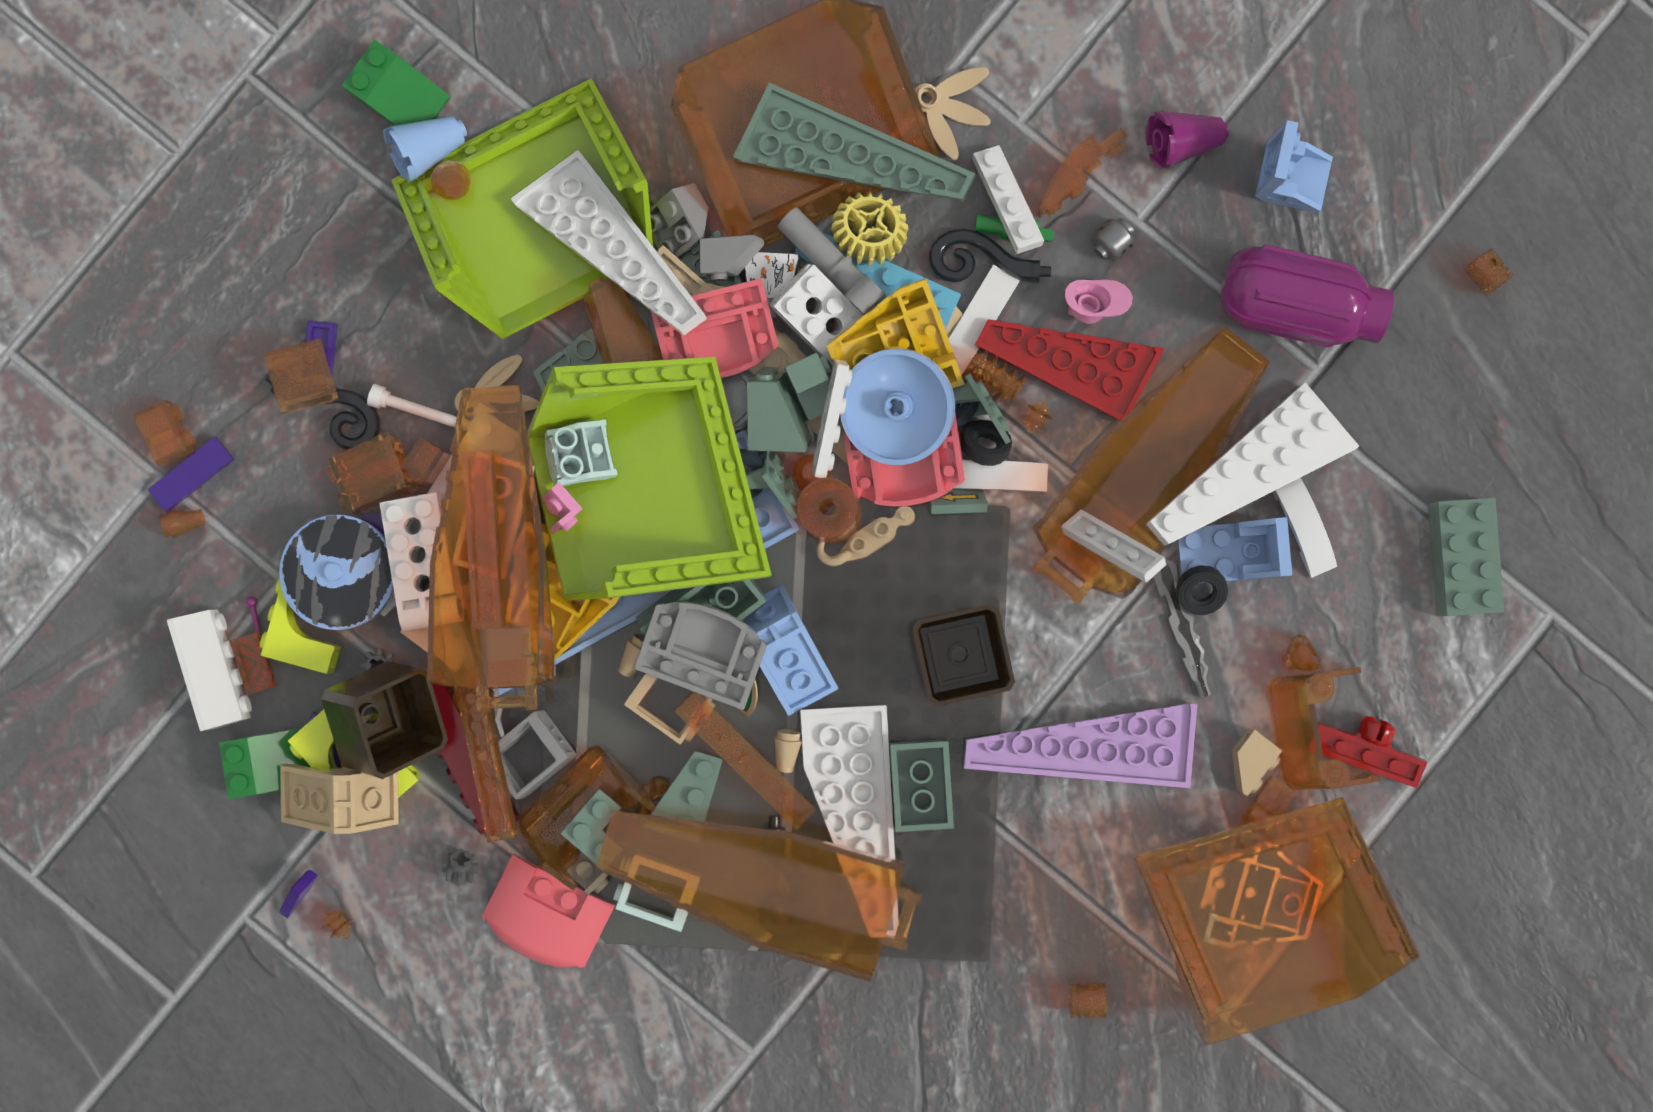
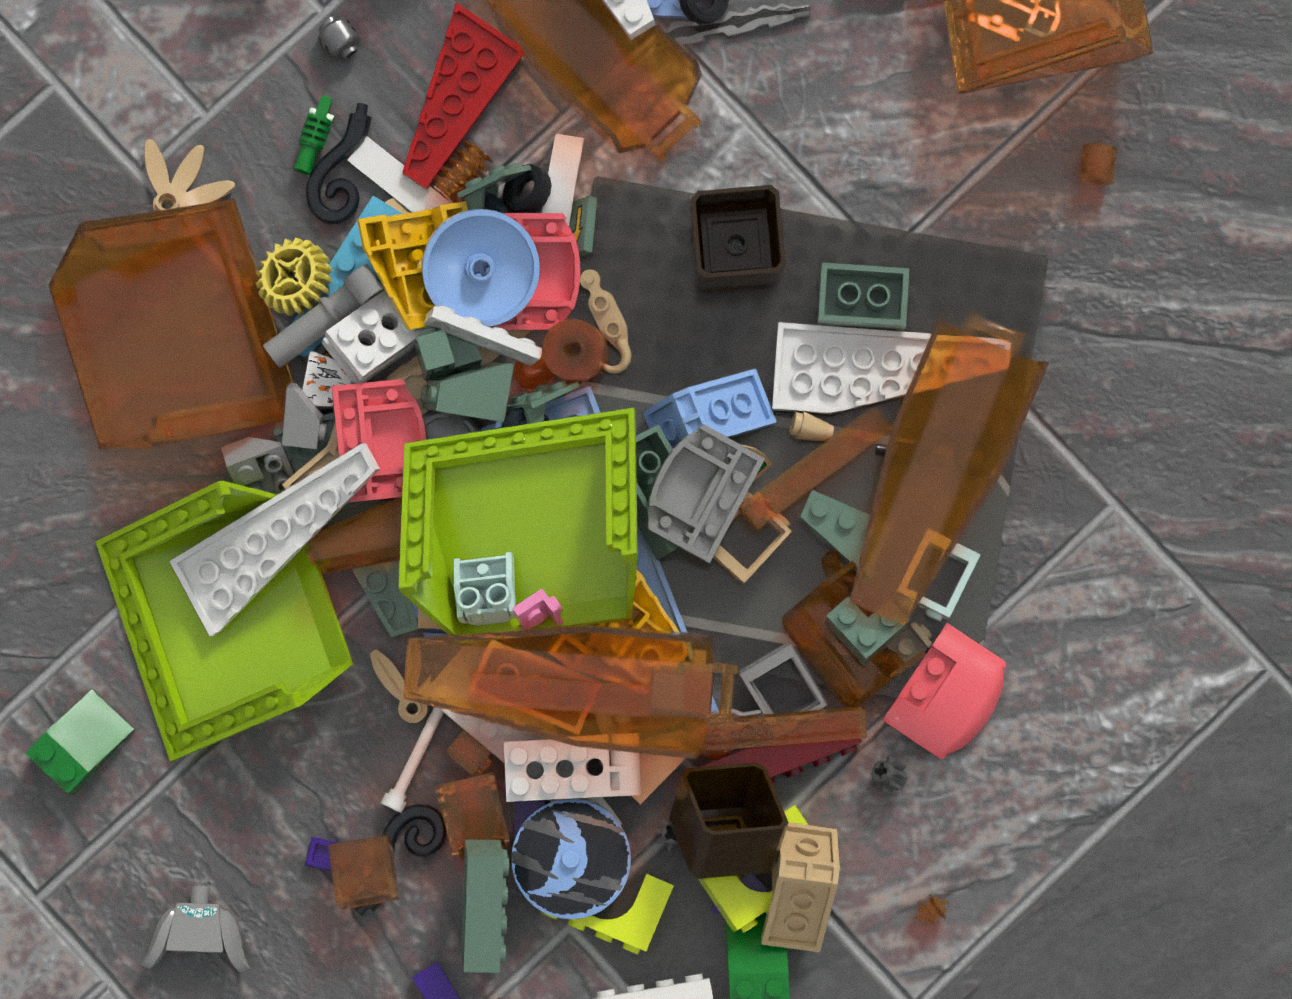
camera: 80 degrees left, 5 degrees down
(232, 228) = (197, 929): none -> light grey torso
(252, 602) = (589, 960): magenta hinge -> none
(253, 667) = (652, 966): clear orange tile -> none
(280, 495) = (482, 906): none -> sand green brick
(297, 893) = (895, 947): dark purple tile -> none
(423, 144) = (141, 720): light blue cone -> none
(451, 180) = (182, 695): clear orange brick -> none
(631, 655) = (695, 569): tan cone -> none
(817, 141) = (197, 317): sand green wing -> none
(1007, 199) = (284, 136): white plate -> none
(1037, 416) = (507, 137): clear orange wheel -> none
(1070, 176) = (269, 71): clear orange slope -> none
(1097, 299) = (398, 61): bright pink piece -> none
(1113, 545) = (648, 75): white plate -> none
(1125, 748) = (851, 96): lavender wing -> none

